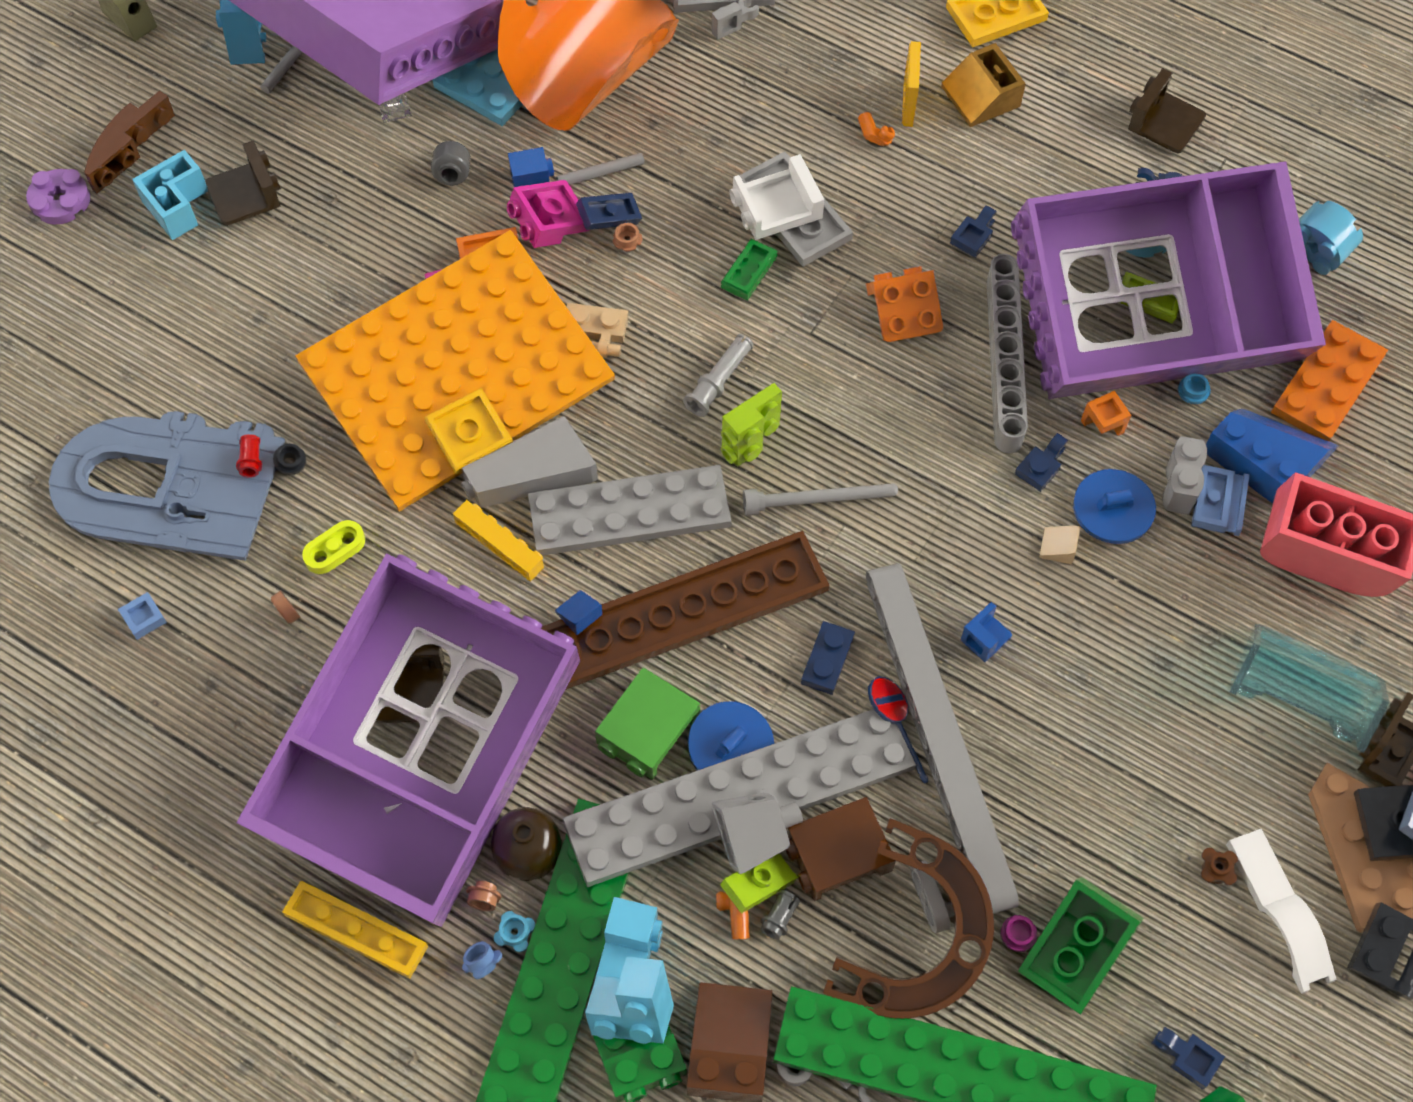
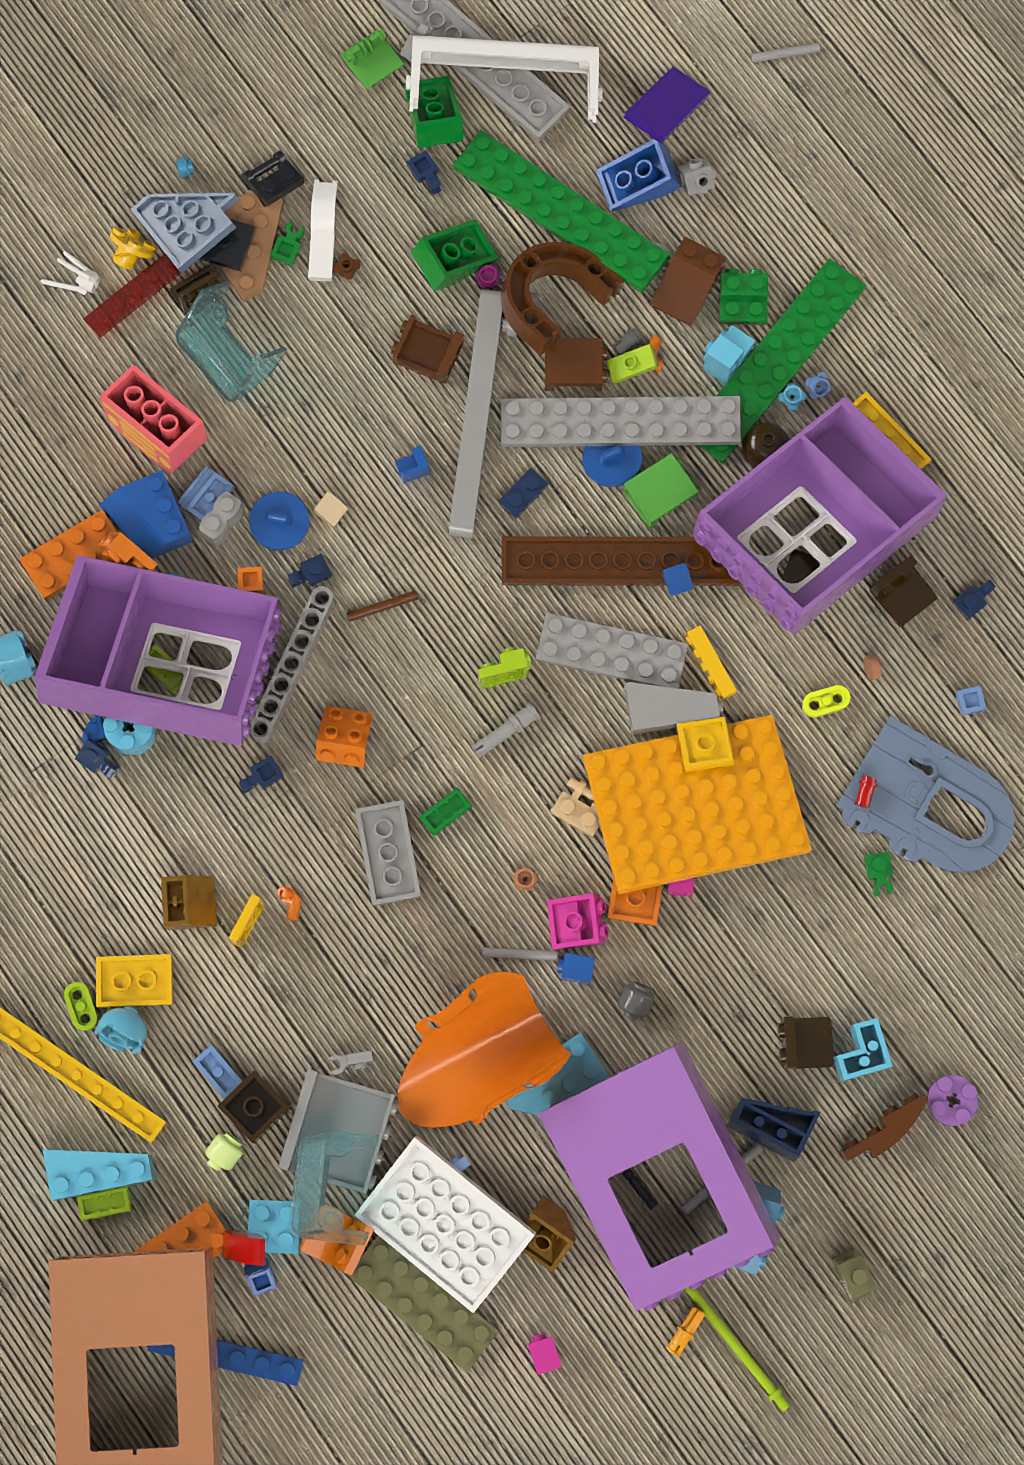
camera: 160 degrees left, 15 degrees up
(171, 745) = (972, 601): none -> dark blue plate
(208, 389) = (879, 867): none -> green plate
(252, 99) = (774, 1126): none -> dark blue wedge
(265, 714) = (903, 592): none -> dark brown bracket
(289, 451) = (834, 778): black plate -> none
(483, 896) = (802, 422): nougat plate -> none
(608, 210) = (531, 901): dark blue plate -> none
(632, 1006) = (742, 313): medium azure brick -> none
(754, 828) = (623, 387): light grey torso -> none
(757, 501) = (522, 620): light grey piece -> none
(778, 200) = (401, 854): white panel -> none
(892, 706) = (501, 441): piece -> none
(935, 459) = (382, 606): none -> reddish brown bar
(1048, 794) = (427, 350): none -> reddish brown panel
(1163, 116) = (59, 819): dark brown bracket -> none
(1270, 382) = (120, 549): none -> orange plate
(1314, 857) = (287, 248): none -> green plate

